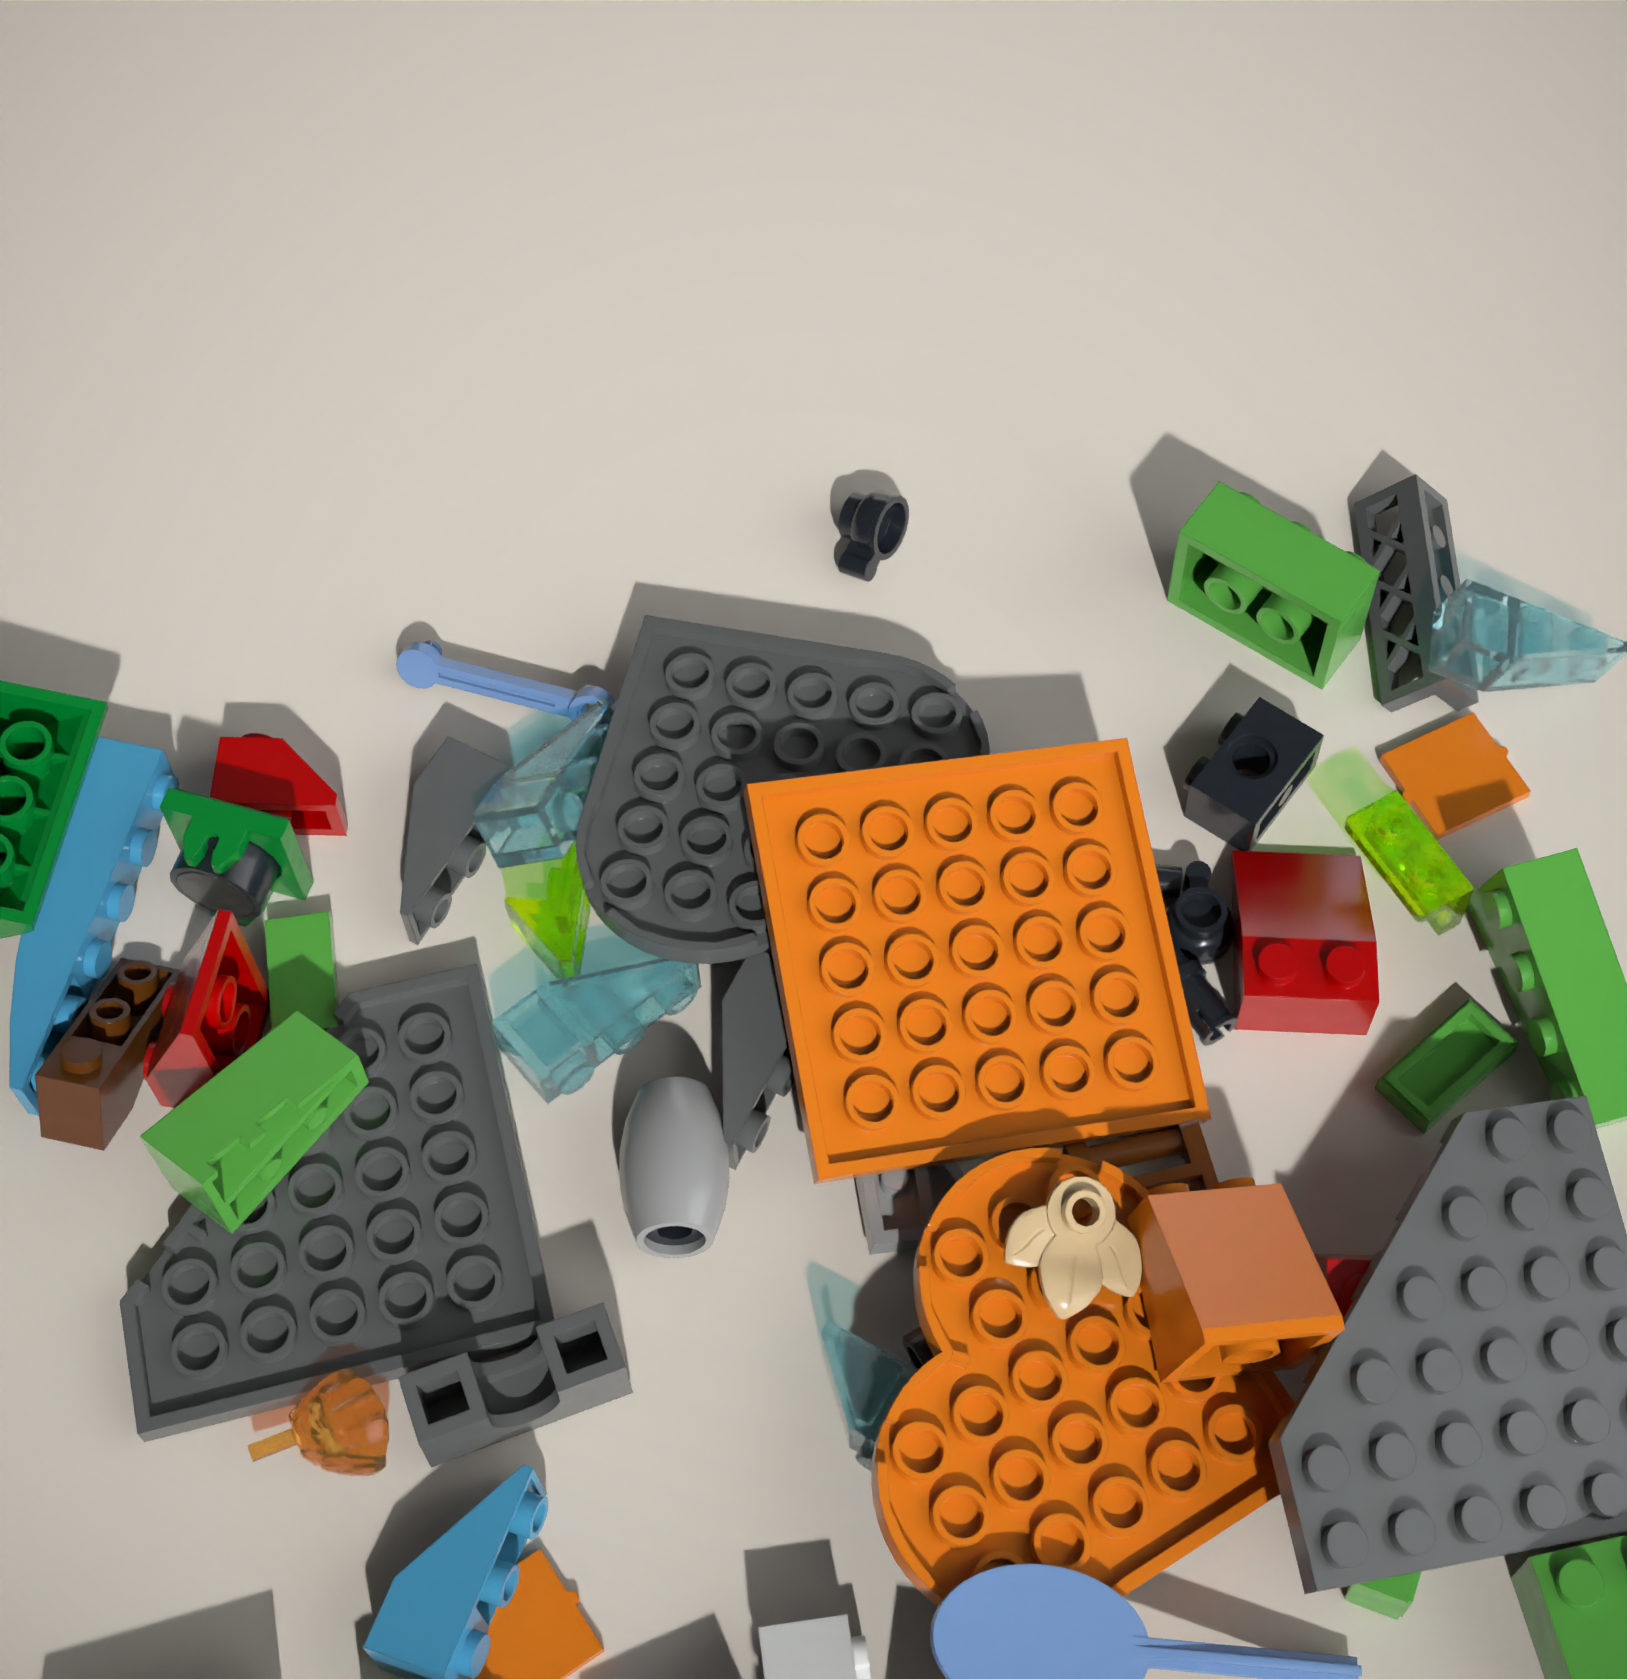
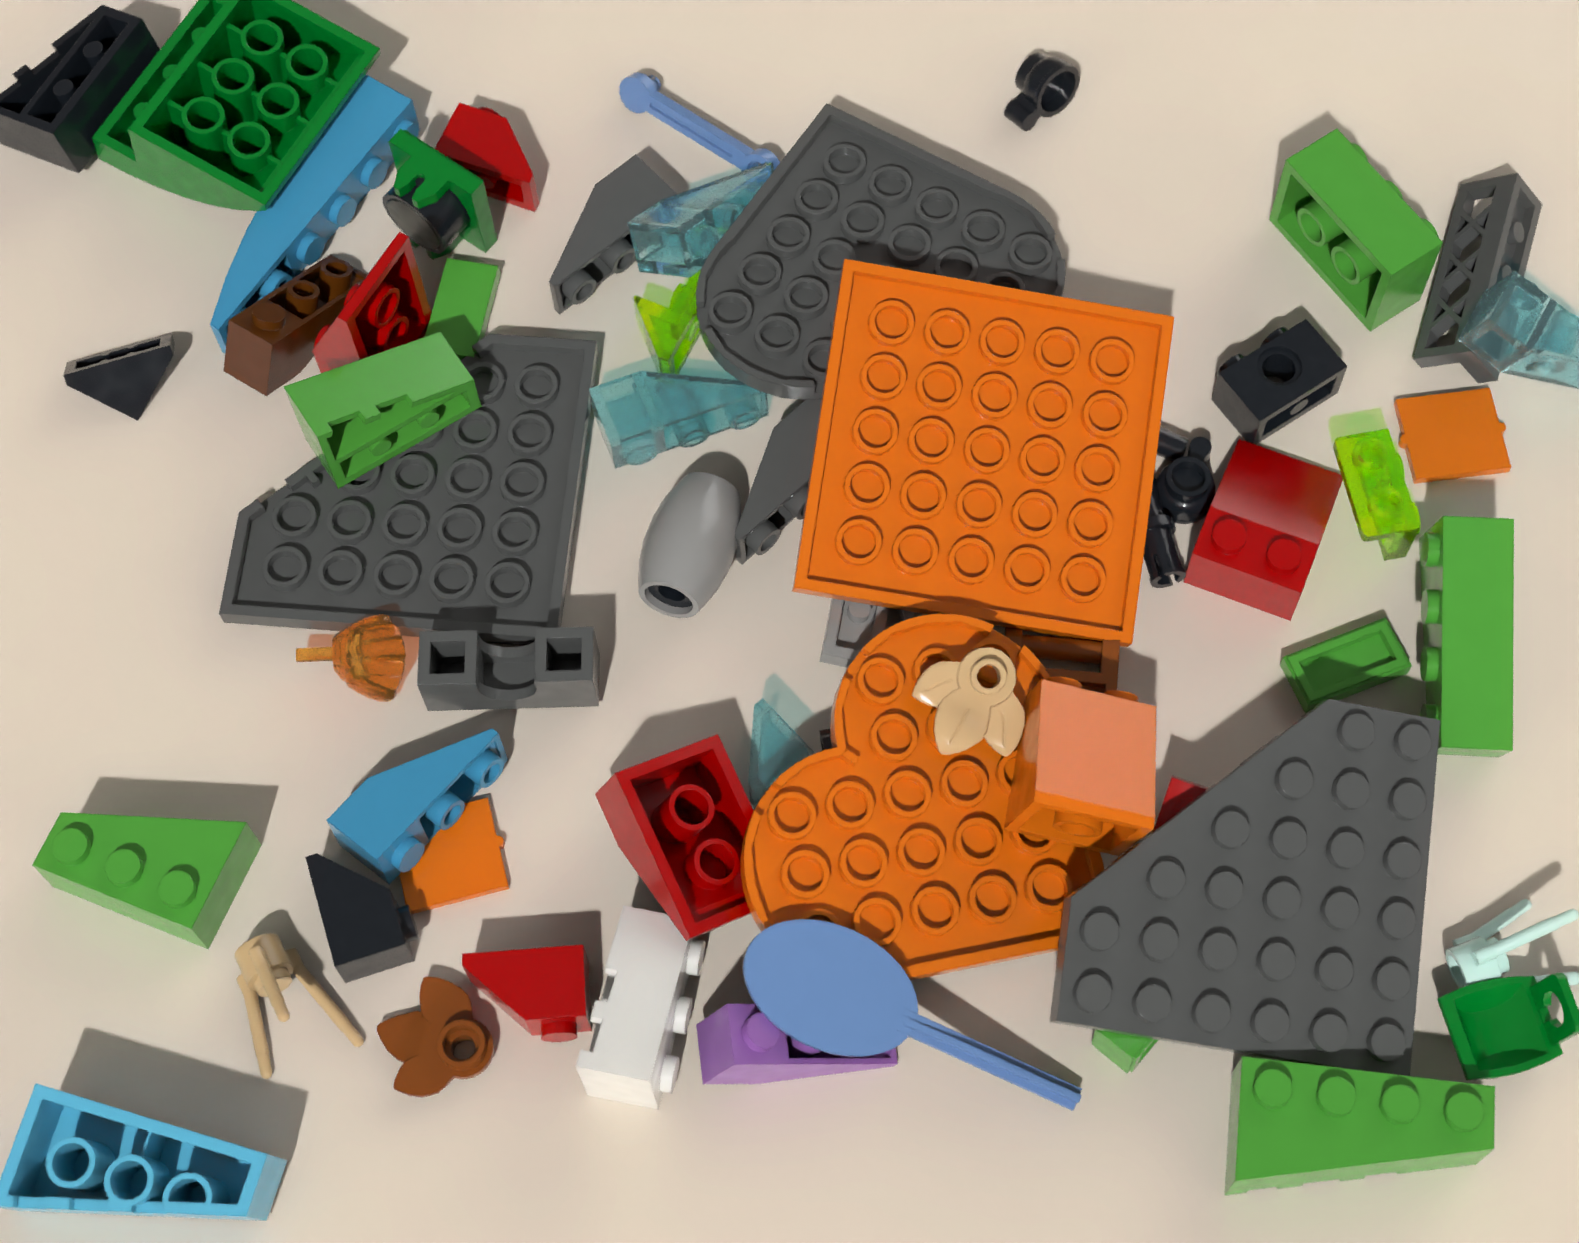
camera: 20 degrees right, 5 degrees up
(799, 1516) = (684, 832): none -> red slope

